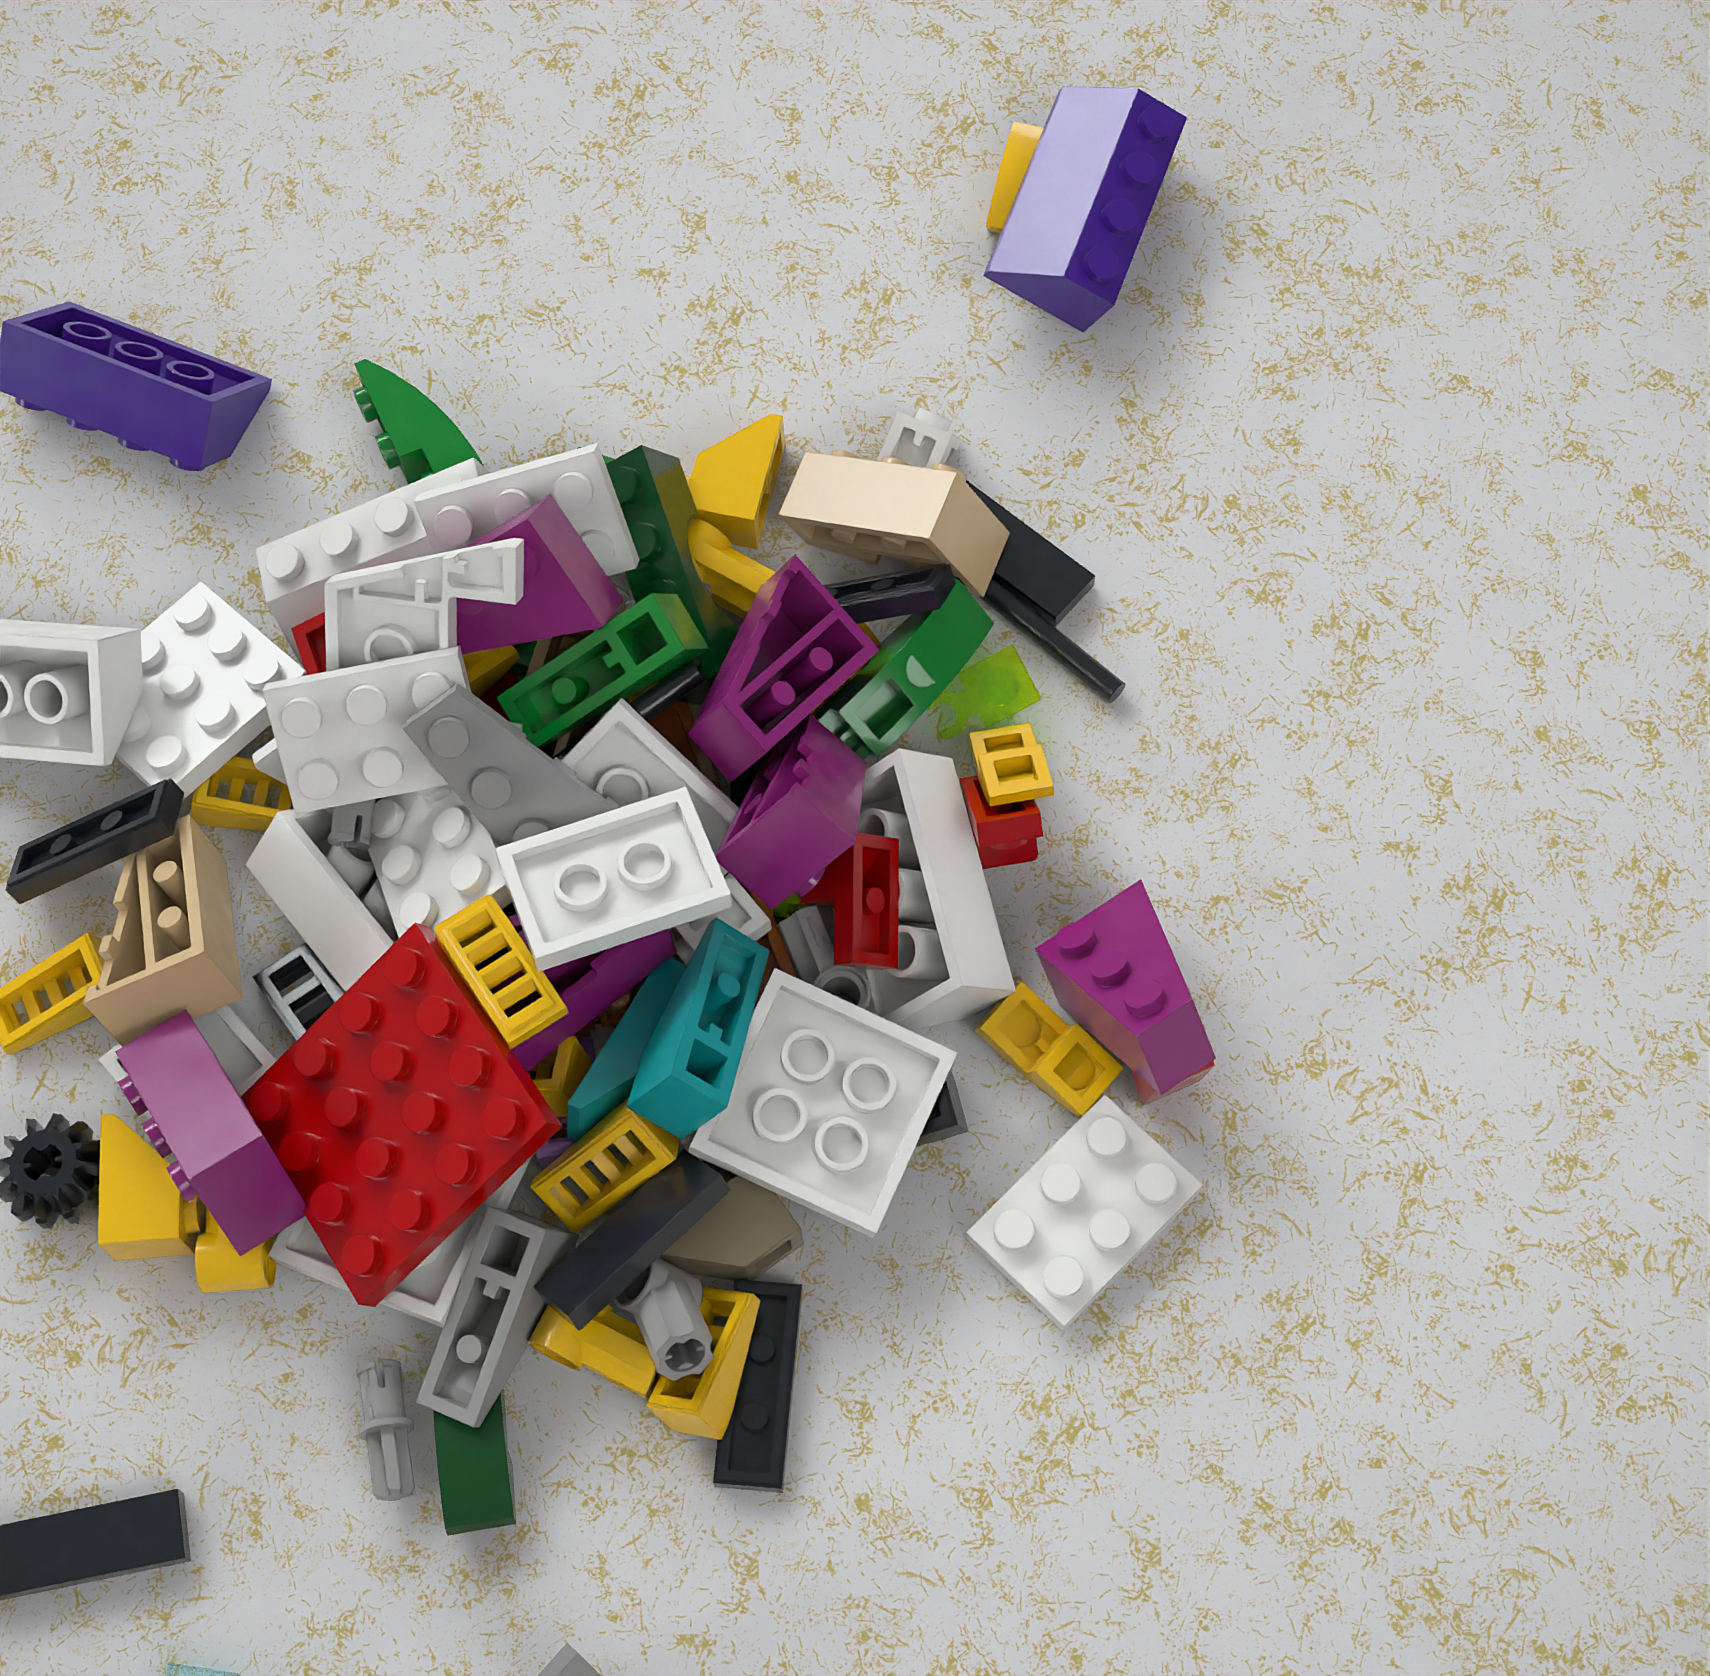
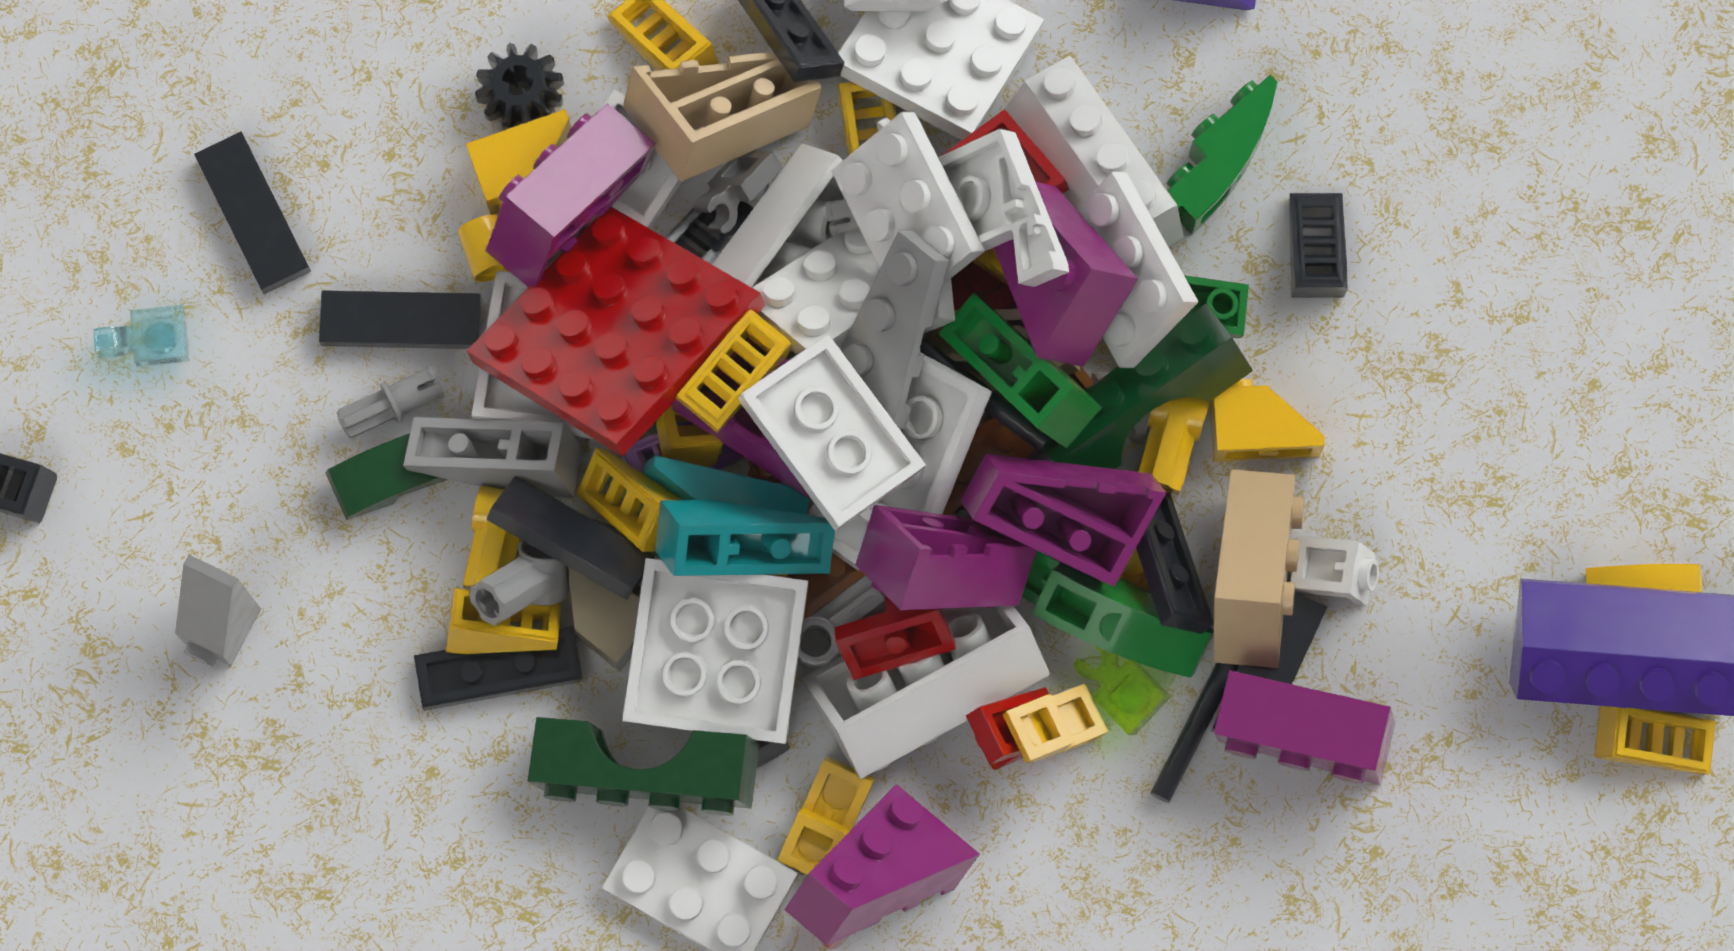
camera: 70 degrees right, 10 degrees up
(265, 946) = (737, 181): none -> flat silver plate
(285, 1394) = (399, 319): none -> black tile
(577, 366) = (1317, 285): none -> black slope
(904, 1311) = (708, 770): none -> dark green arch
(1089, 508) = (1305, 727): none -> magenta wedge
(1181, 215) = (1621, 731): none -> yellow slope

